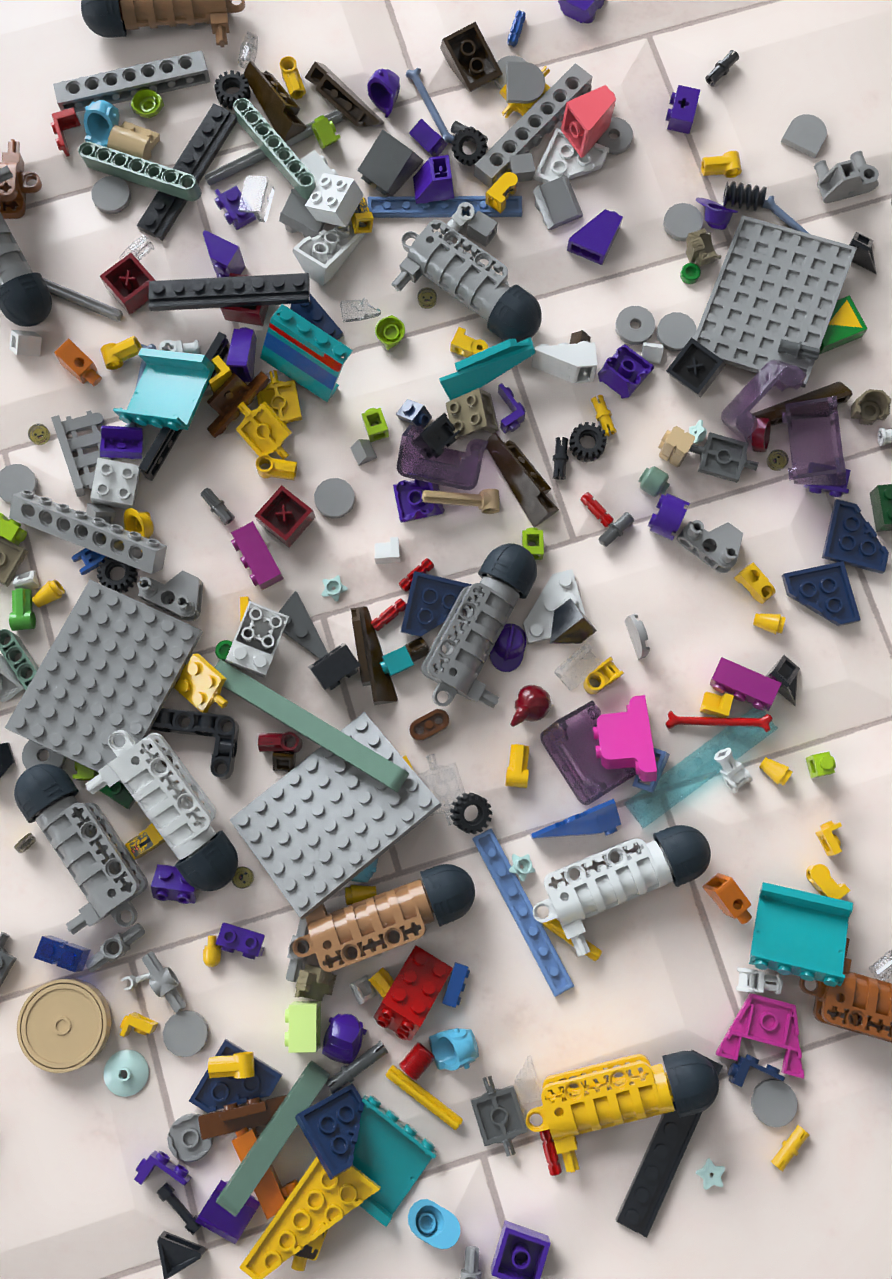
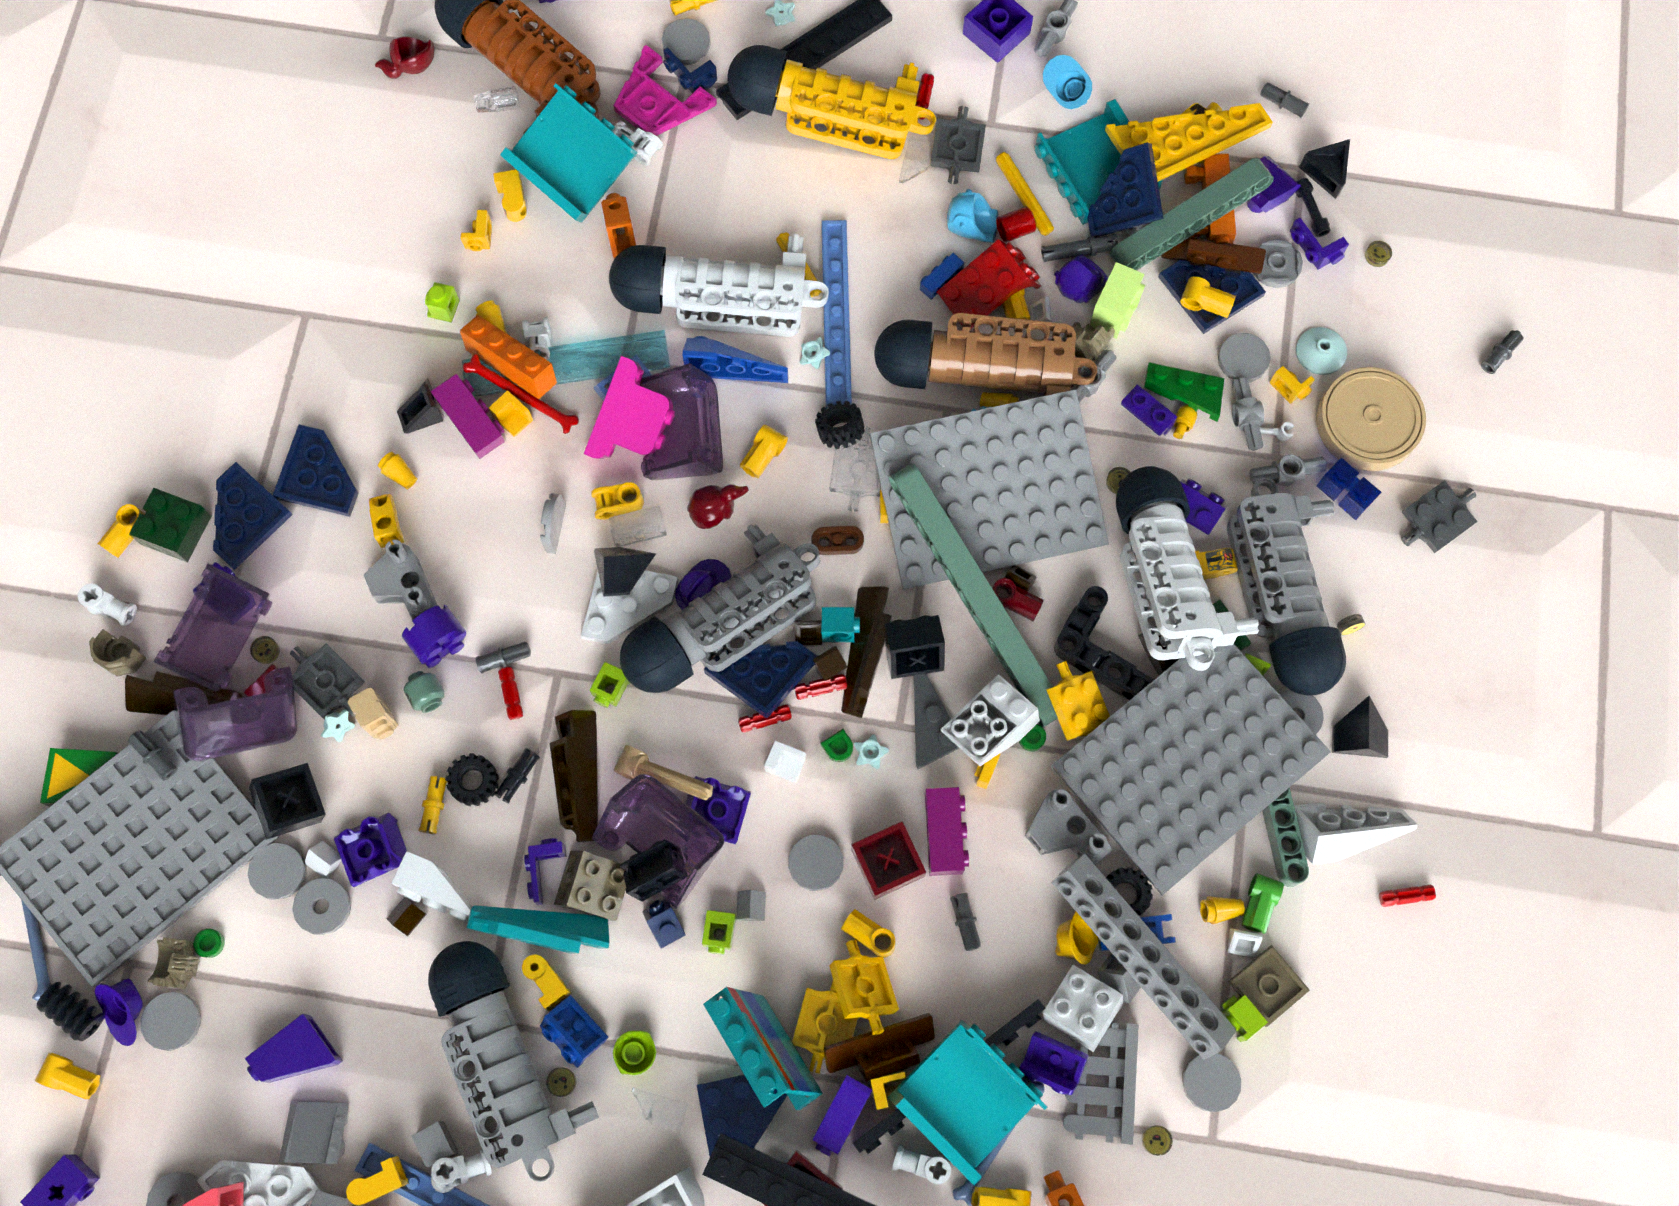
camera: 155 degrees left, 5 degrees down
(109, 1191) = (1378, 253): none -> clear smoke tile
(215, 981) = (1193, 388): none -> green wing
(357, 580) = (838, 746): none -> green tile
(388, 630) = (829, 663): none -> dark brown slope
(434, 327) = (572, 1031): none -> blue bracket
(743, 740) = (508, 356): none -> orange brick

